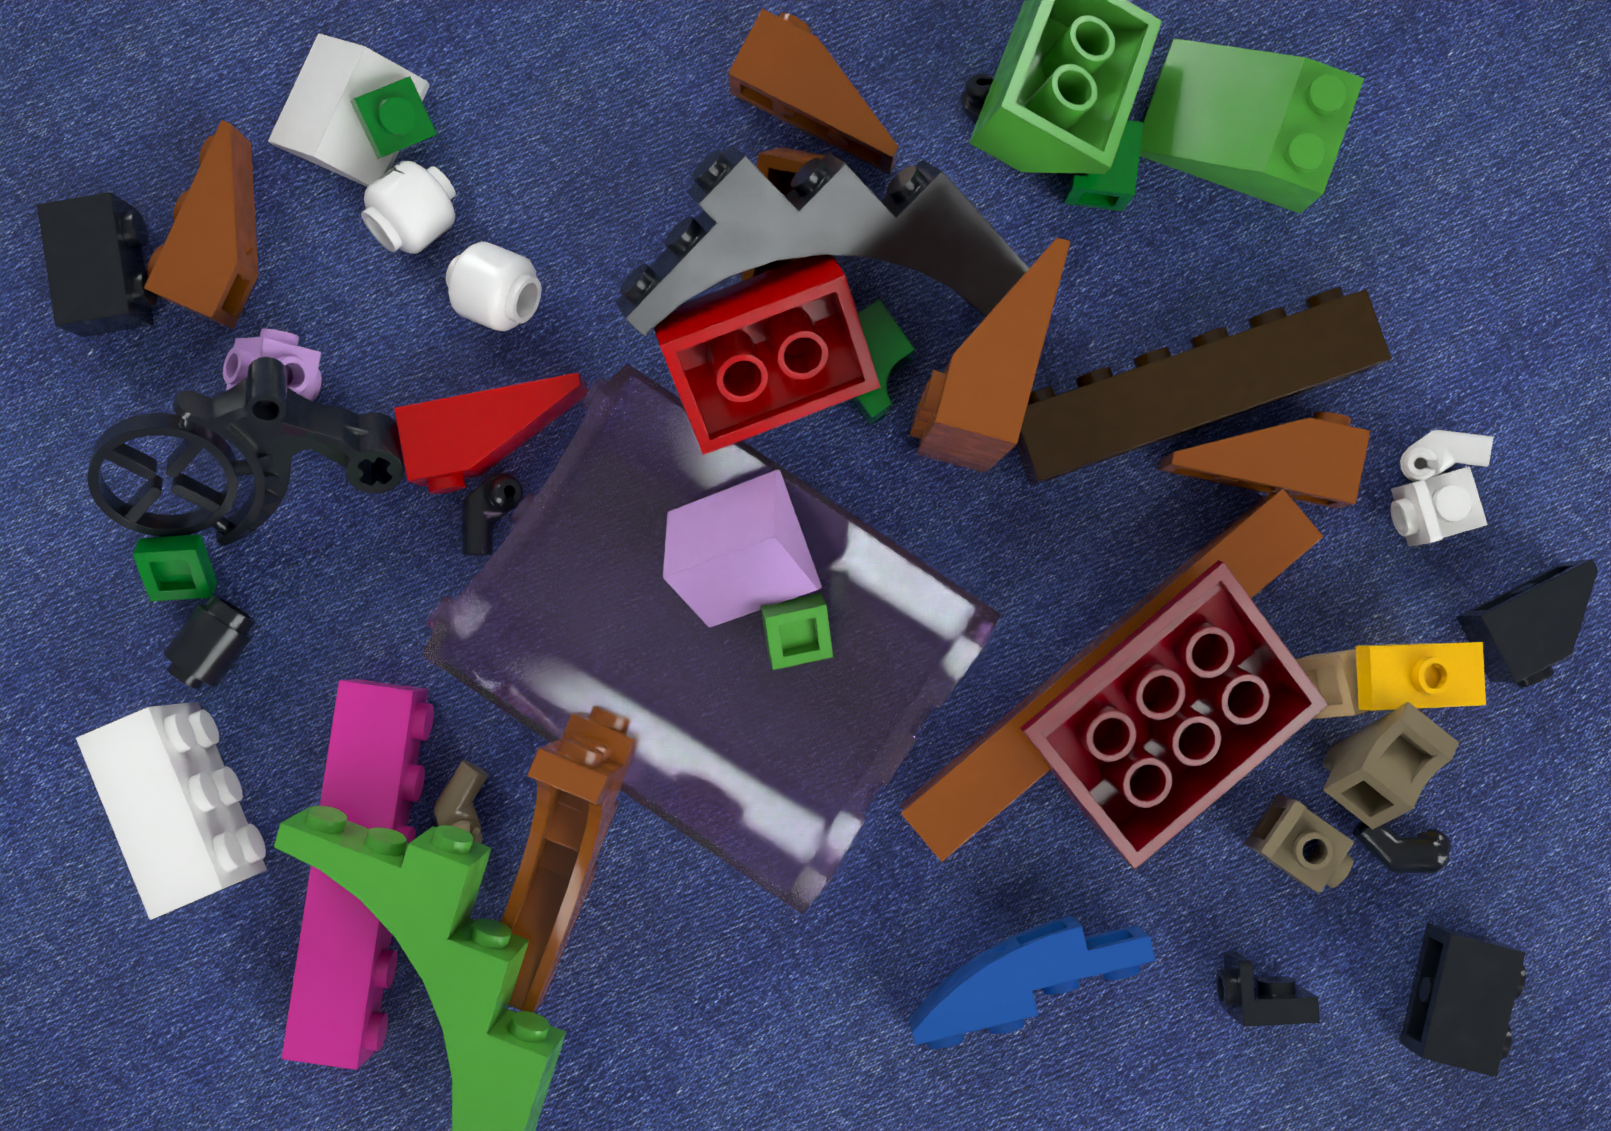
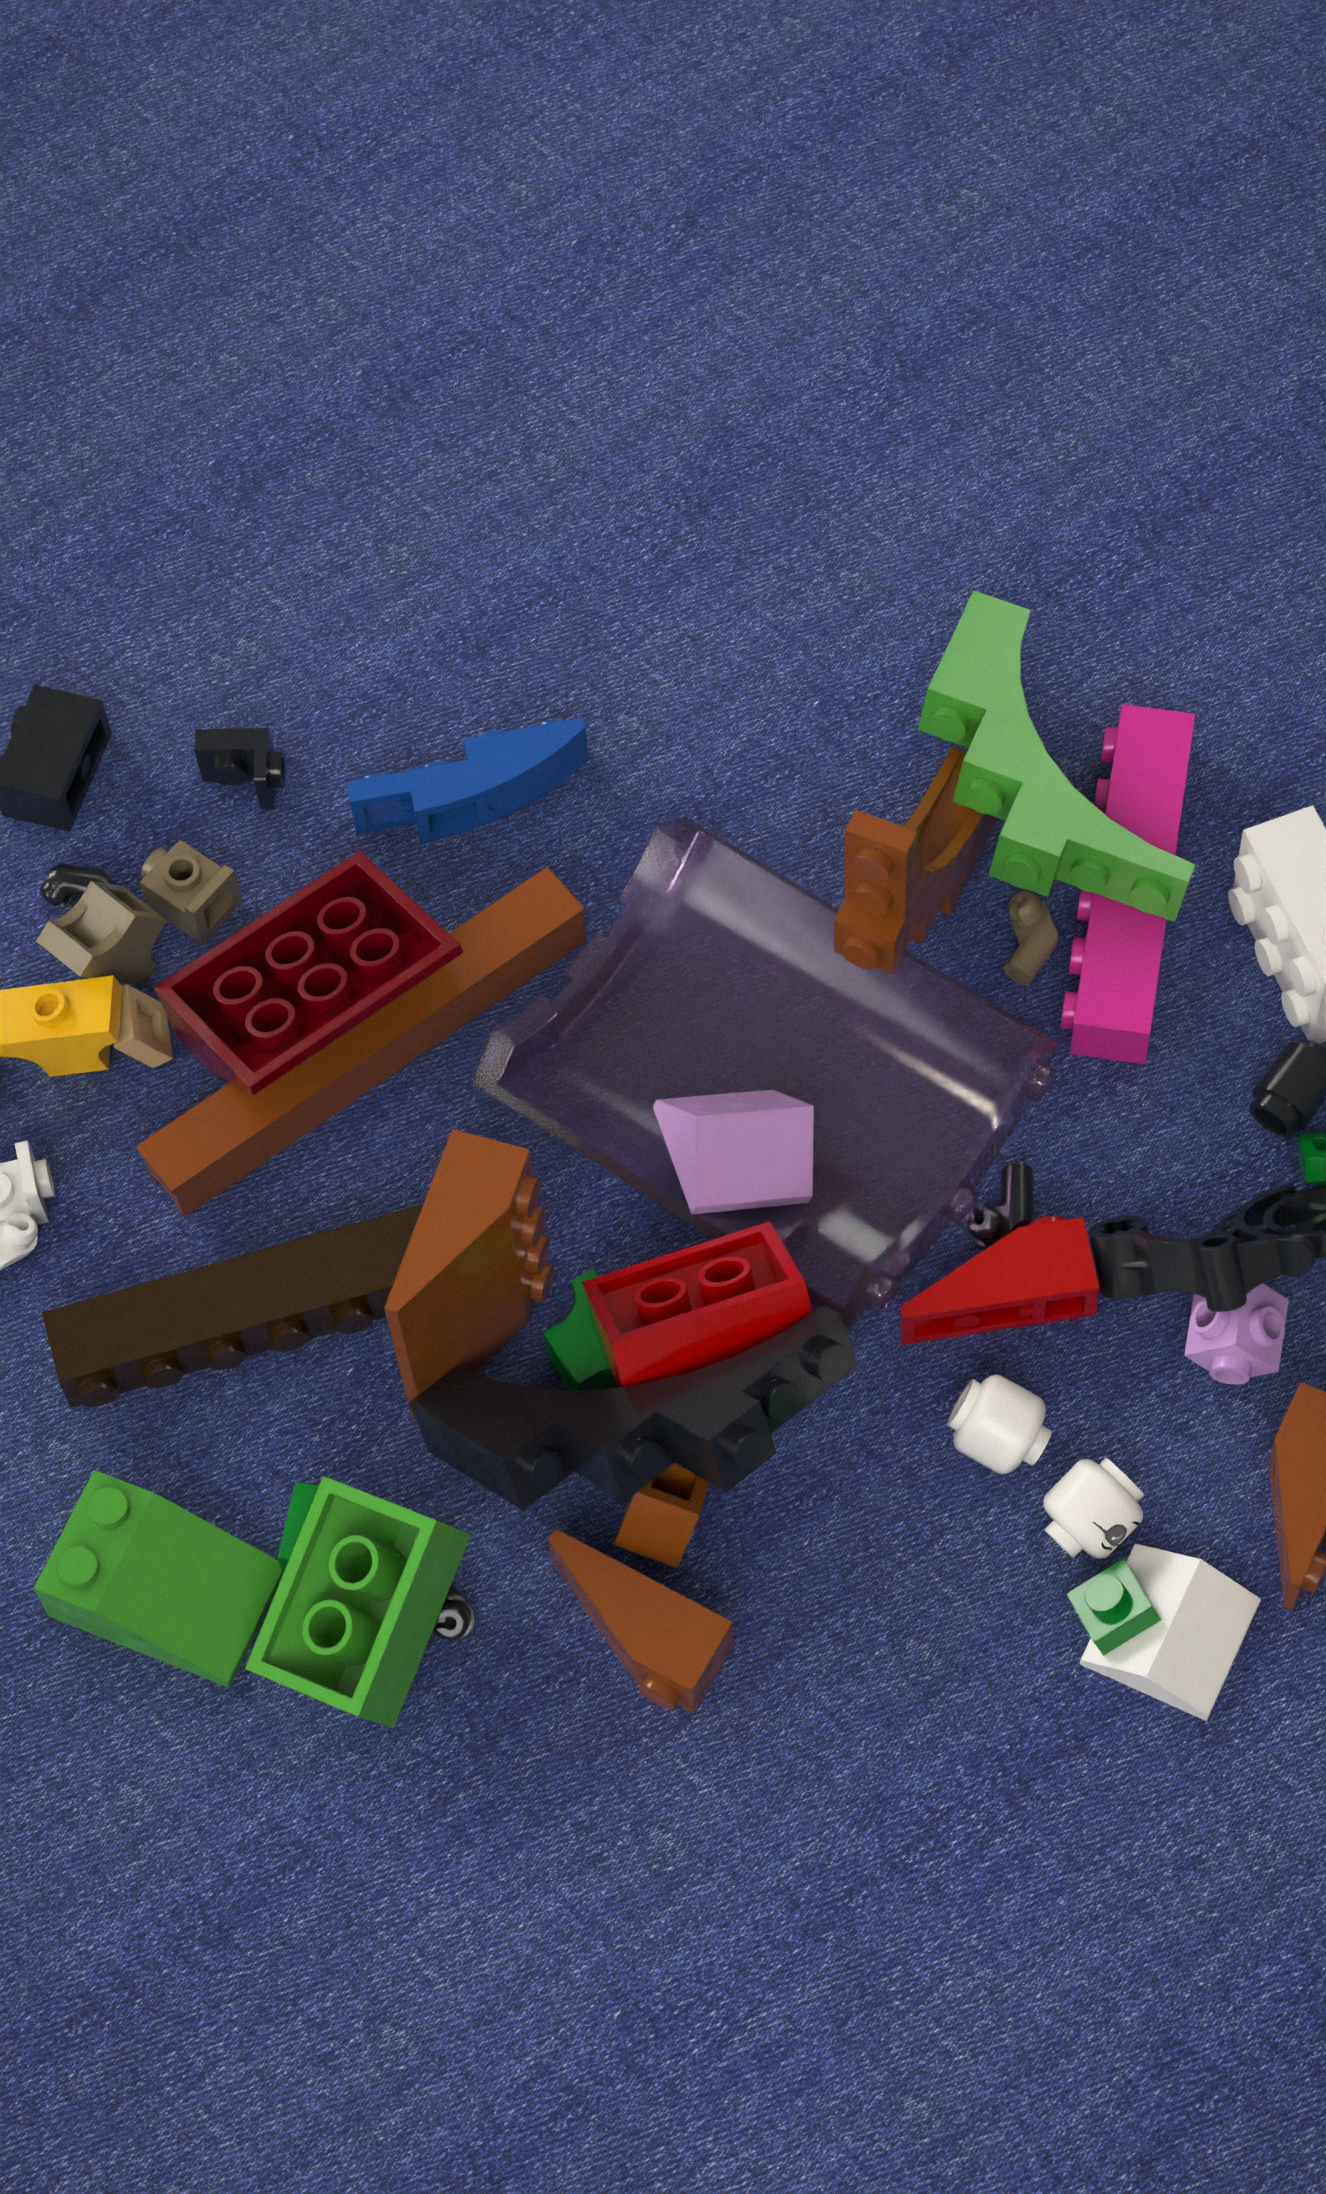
camera: 175 degrees left, 25 degrees down
(797, 631) = (681, 1073): bright green plate -> none
(1308, 458) = (157, 1233): dark orange slope -> none

